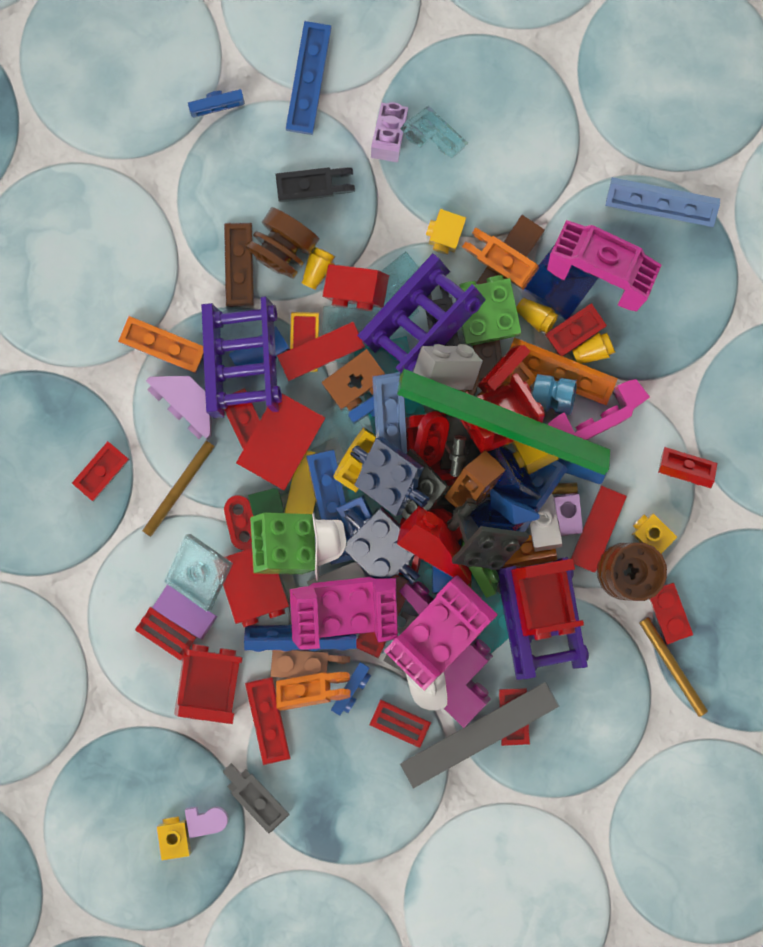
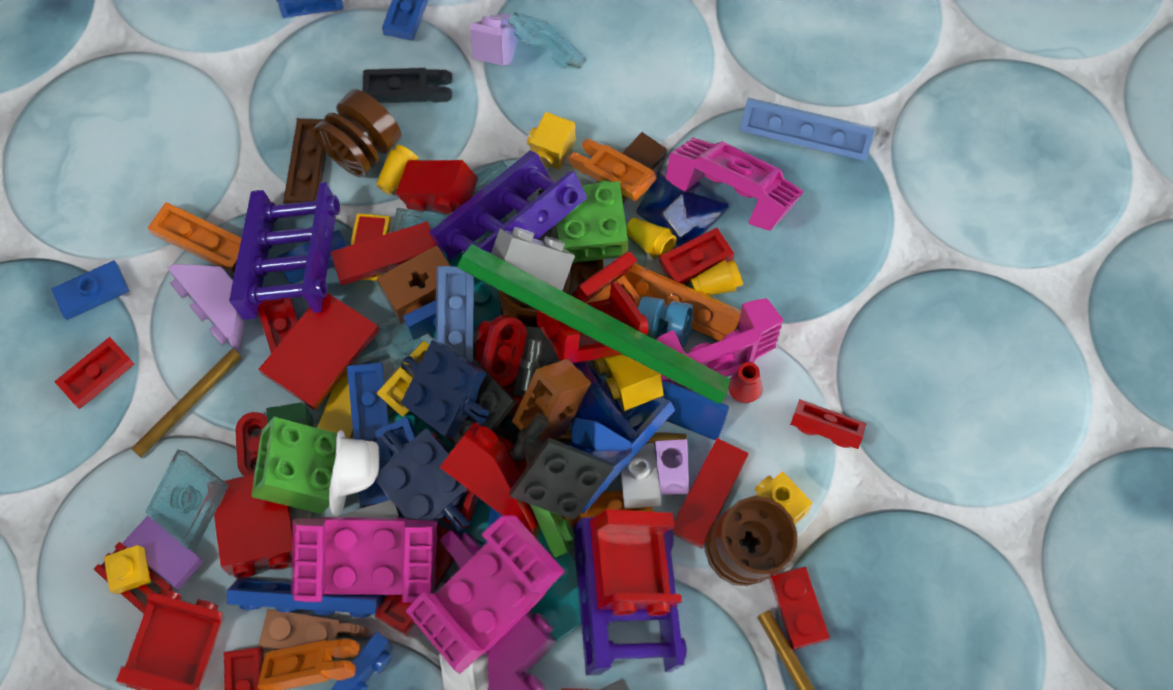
camera: 10 degrees right, 20 degrees down
(79, 397) = (90, 290): none -> blue plate
(163, 630) = (127, 569): none -> yellow plate
(614, 442) = (746, 383): none -> red cone

